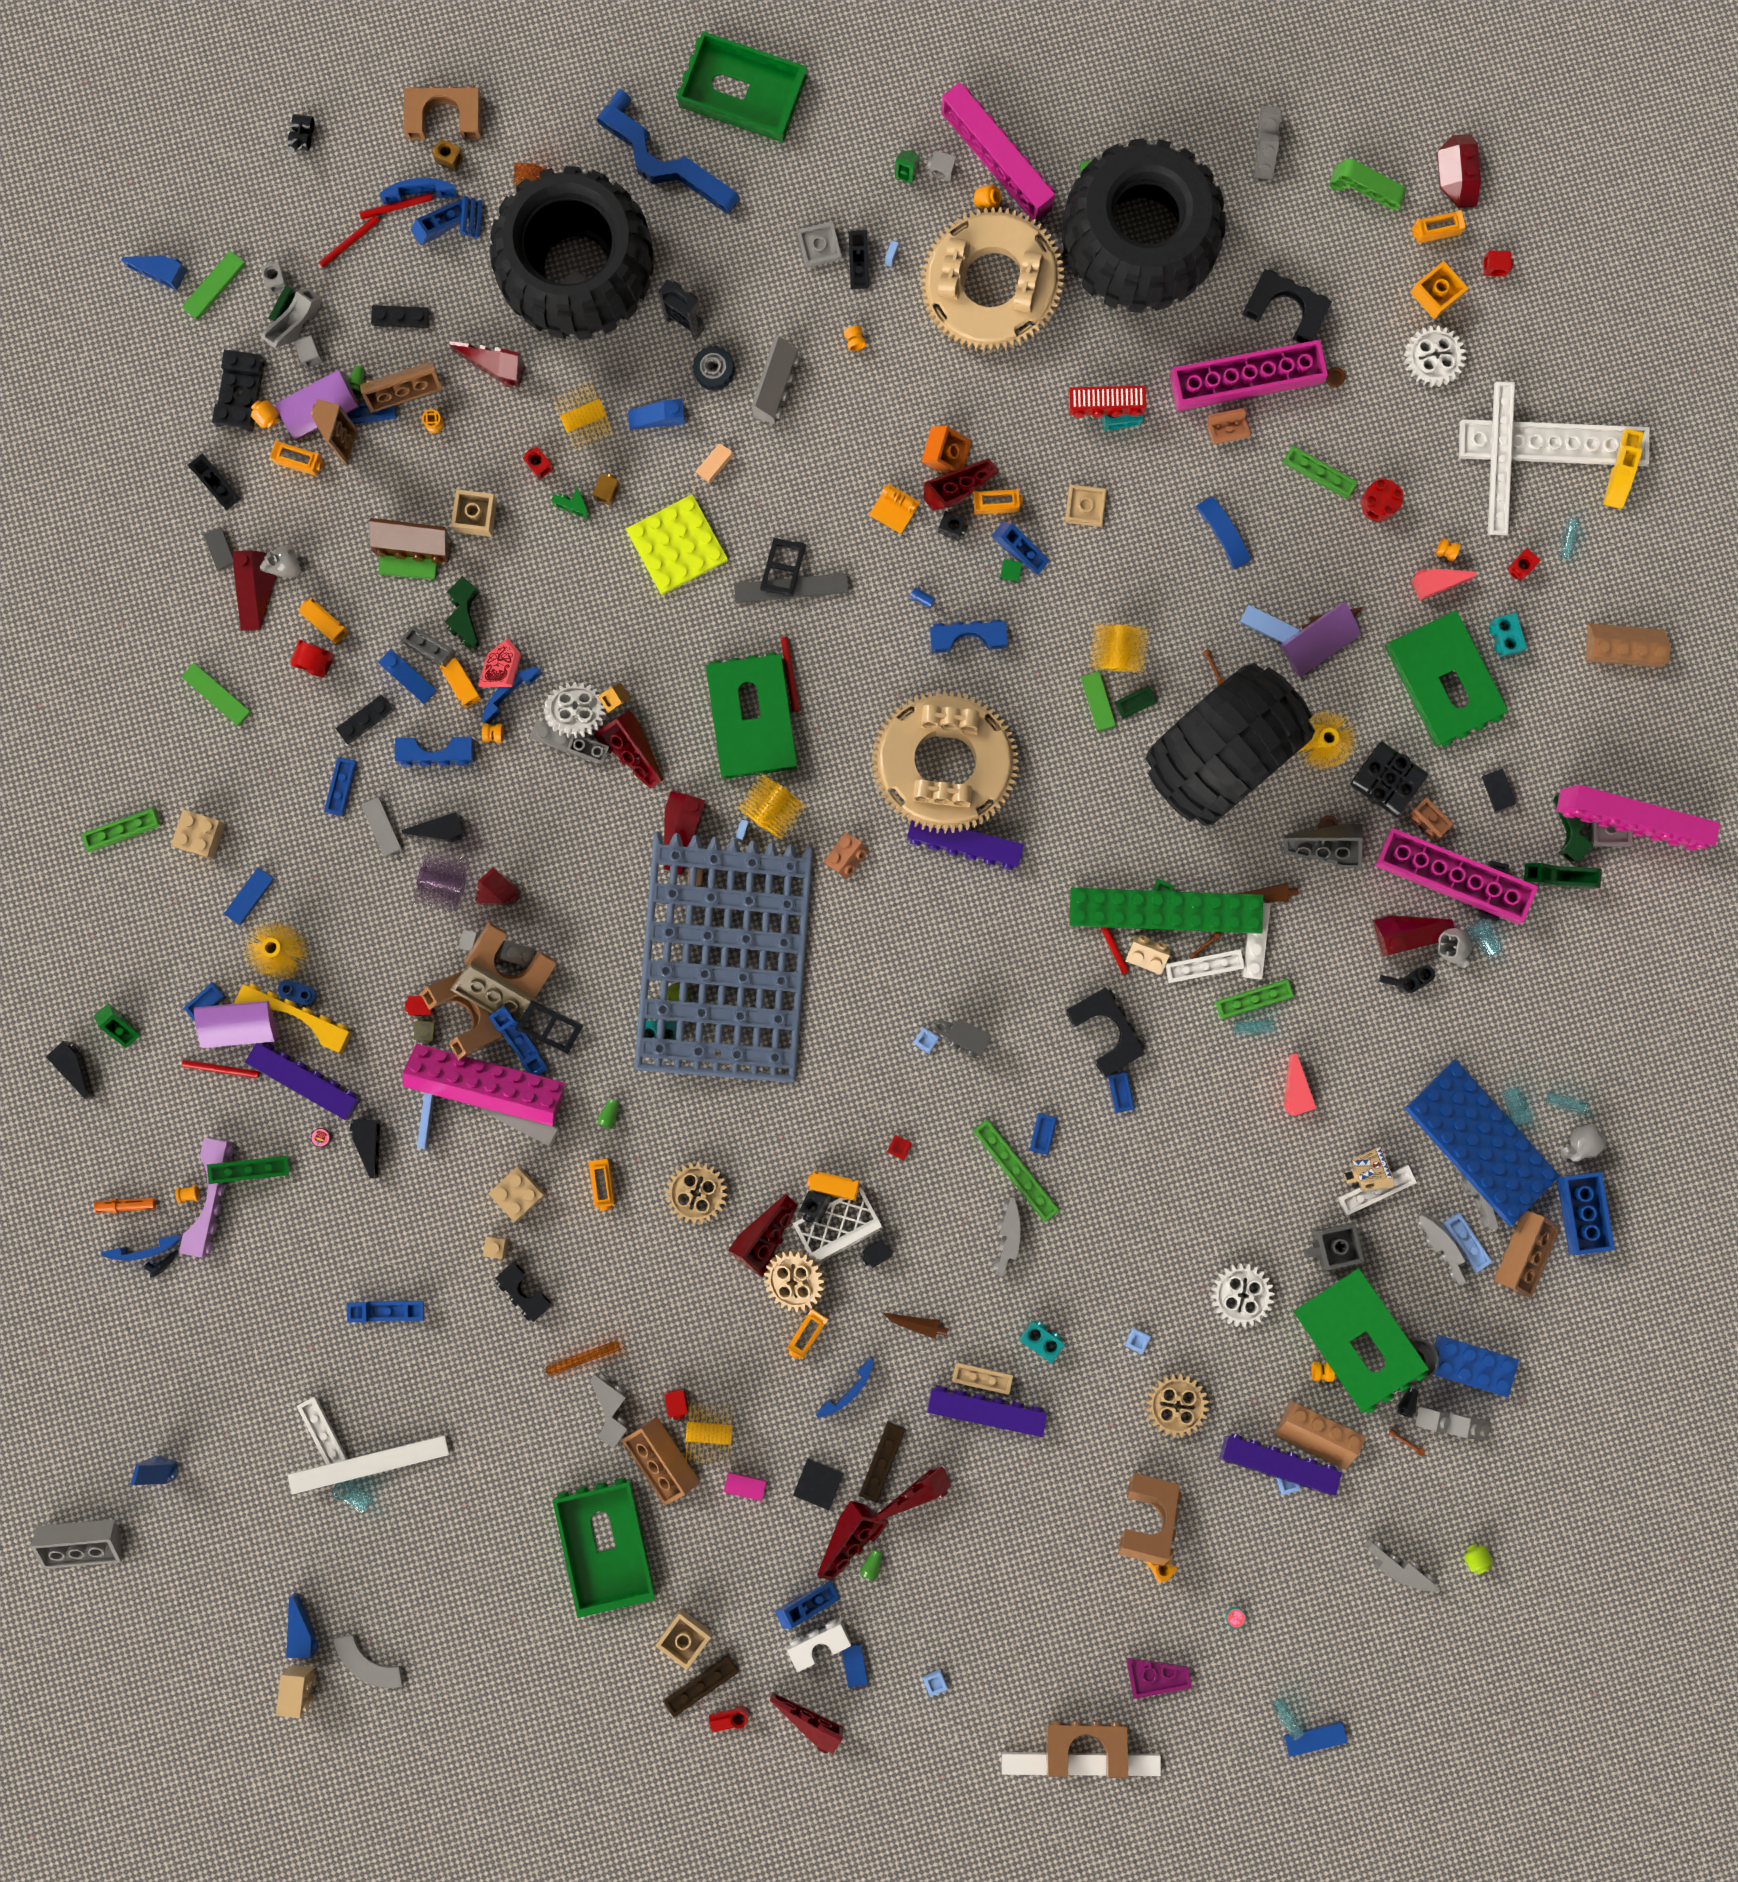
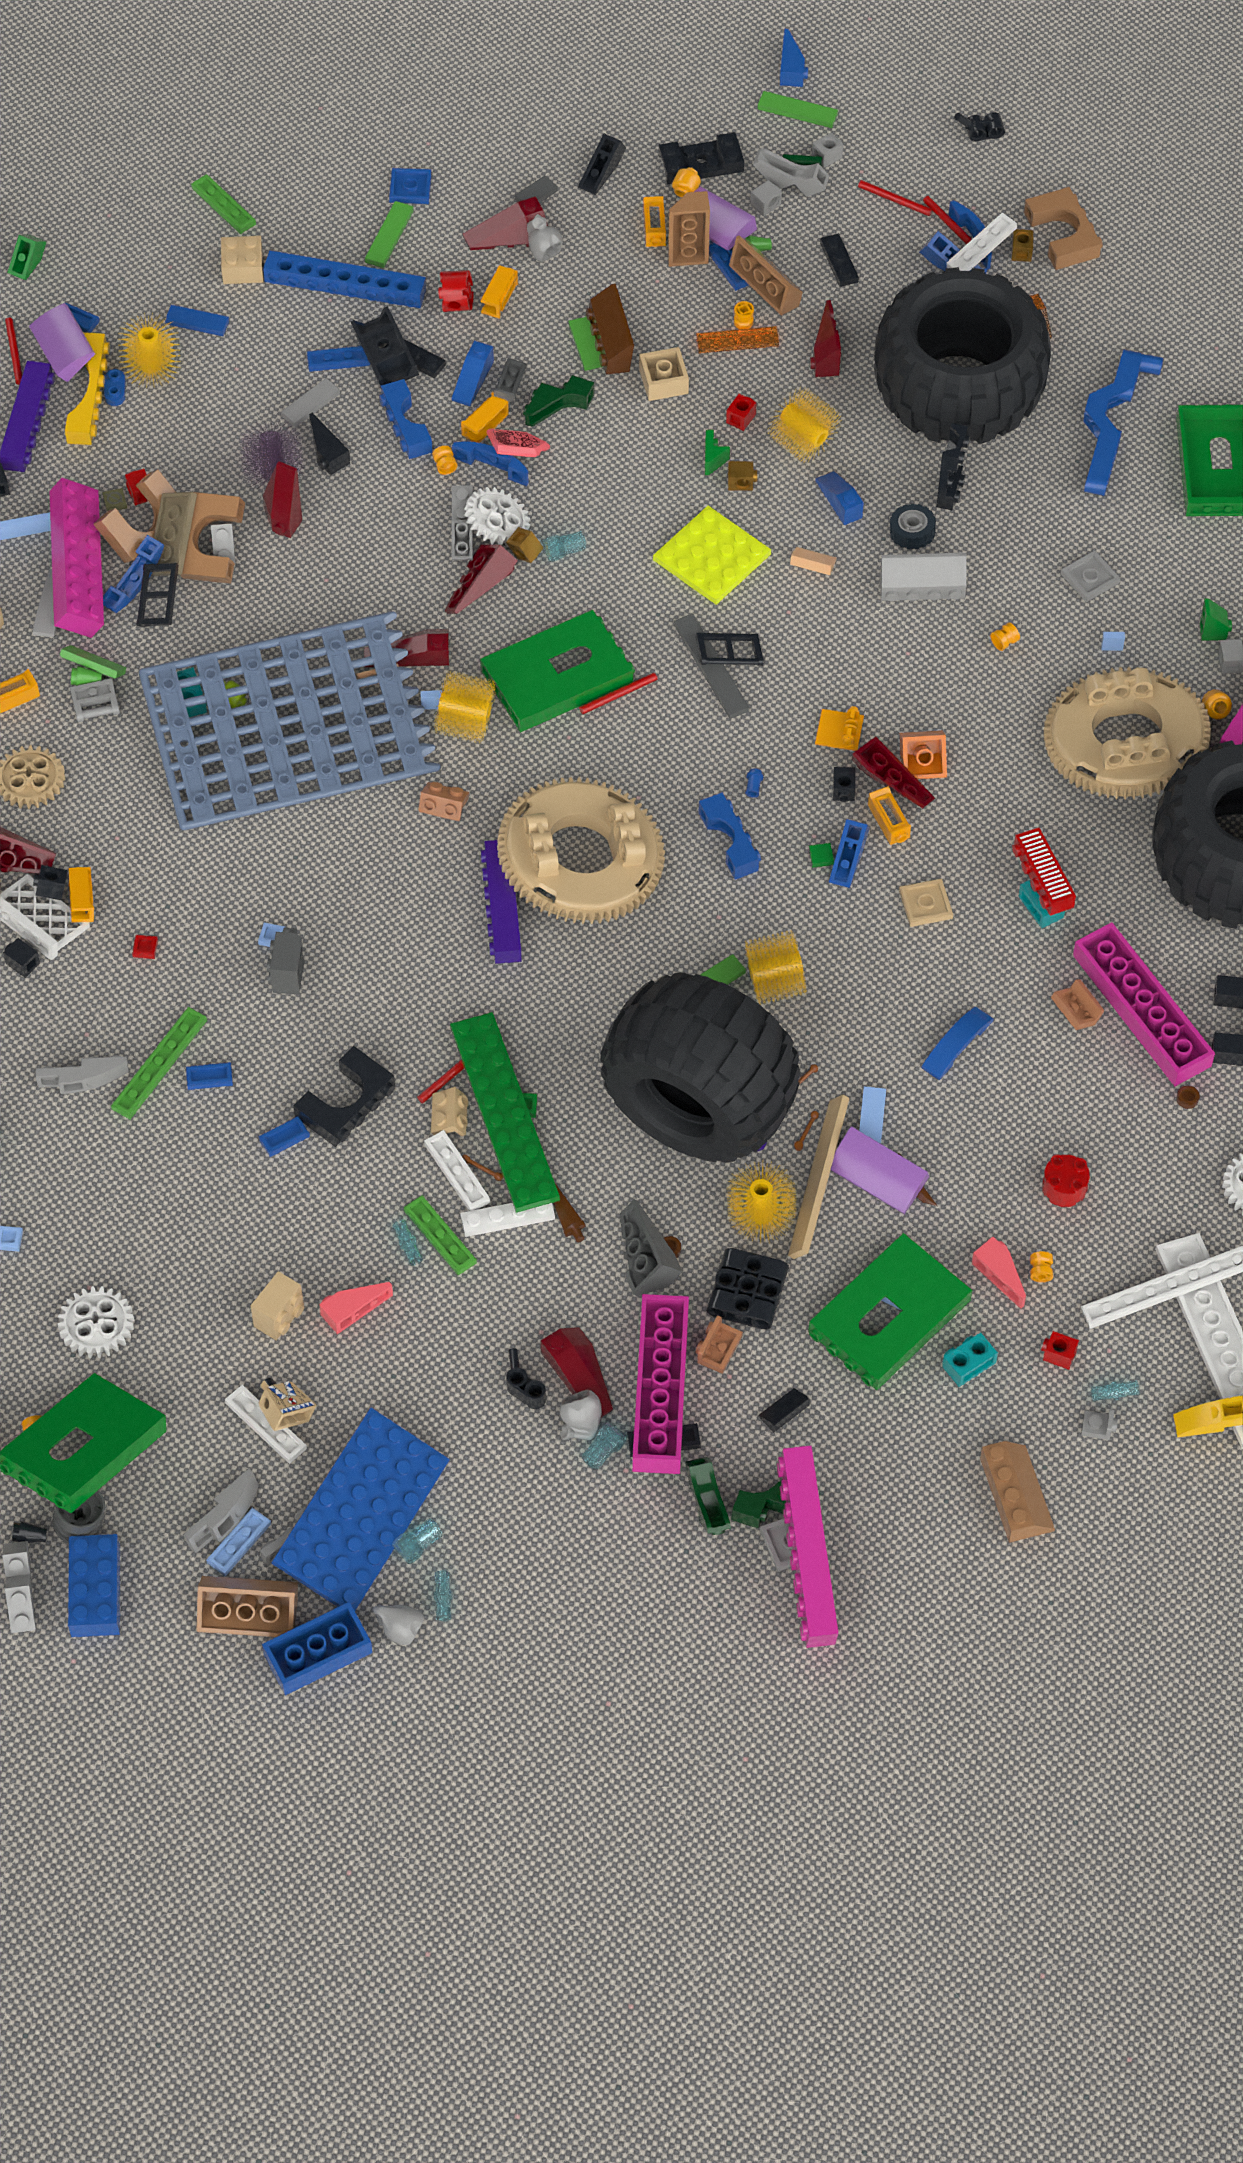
camera: 70 degrees right, 25 degrees down
(166, 656) = (410, 185): none -> blue tile
(246, 753) = (345, 279): none -> blue brick
(370, 739) = (387, 363): none -> black piece
(444, 188) = (983, 243): none -> white plate
(454, 436) = (737, 339): none -> clear orange tile
(595, 1103) = (92, 661): none -> bright green tile
(624, 670) = (558, 547): none -> clear light blue piece
(629, 1113) = (94, 694): none -> light grey plate
(858, 258) = (1094, 612): black slope -> none
(1285, 1148) = (277, 1306): none -> tan brick
(1310, 687) = (818, 1177): none -> tan tile
(1320, 472) = (1071, 1115): bright green tile -> none
(1325, 1243) = (184, 1397): dark grey hinge -> none
(1592, 561) = (1099, 1424): none -> light grey bracket

